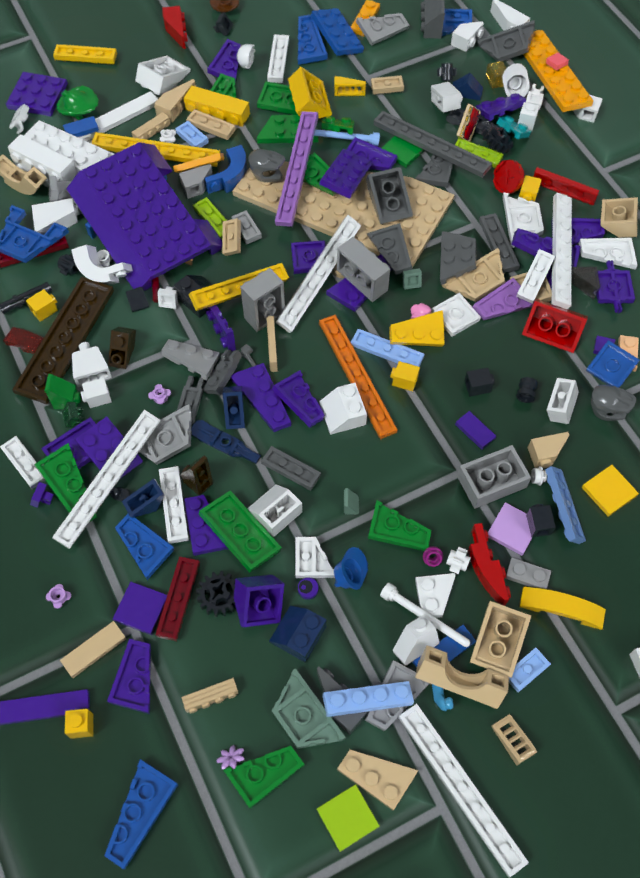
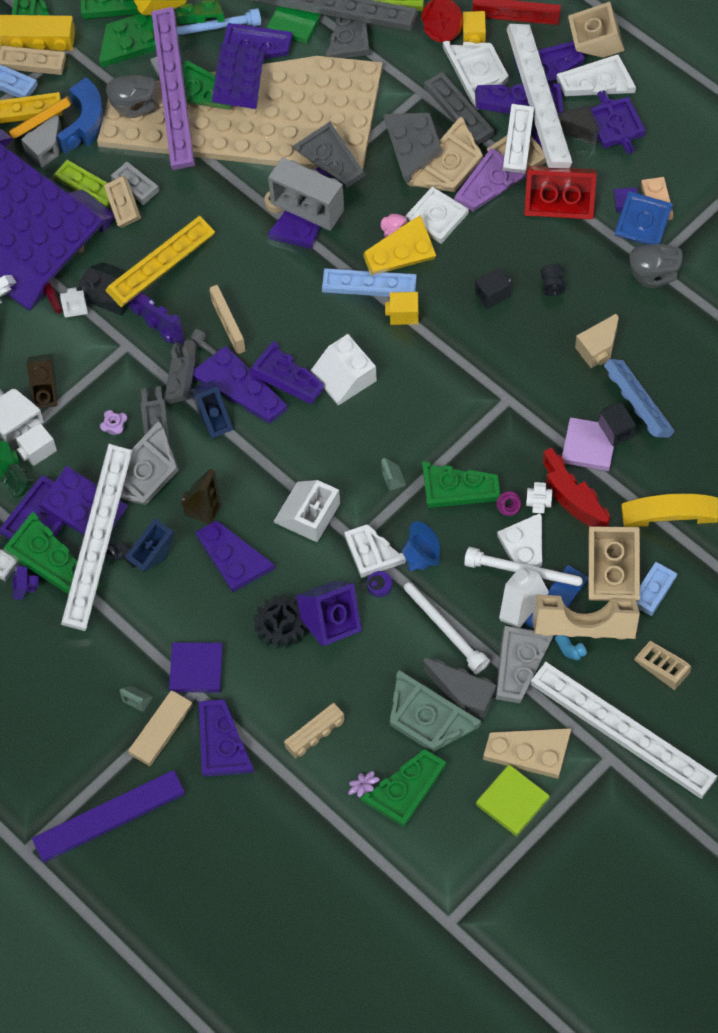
camera: 15 degrees left, 0 degrees up
(52, 596) = (91, 679): lavender plate -> none
(79, 723) = (181, 805): yellow brick -> none
(85, 616) = (135, 697): none -> sand green slope
(137, 299) = (34, 316): black slope -> none
(143, 805) = (287, 862): blue wing -> none
(144, 545) = (169, 597): blue wing -> none
(173, 505) = (187, 543): white plate -> none
(177, 599) = (235, 642): dark red plate -> none
(191, 356) = (136, 365): light grey wing -> none
(214, 438) = (201, 453): dark blue piece -> none
(240, 531) = (277, 546): green plate -> none
(262, 298) = (198, 267): light grey brick -> none
(291, 468) = (307, 458): dark grey plate -> none
(299, 632) = (387, 632): dark blue slope -> none
(305, 255) = (229, 197): dark purple tile -> none
(316, 275) = (251, 215): white plate -> none
(357, 374) = (343, 323): orange tile -> none
(360, 678) = (476, 661): none -> white piece
(367, 698) = (491, 672): light blue plate -> none
(389, 195) = (303, 89): dark grey slope -> none
(412, 278) = (368, 186): sand green tile -> none
(475, 430) = (508, 346): dark purple tile -> none
(493, 476) = (547, 392): light grey brick -> none
(528, 574) = (621, 488): light grey plate -> none
(538, 476) = (598, 375): white plate -> none
(562, 400) = (598, 279): white brick -> none
(610, 490) = (684, 366): yellow tile -> none

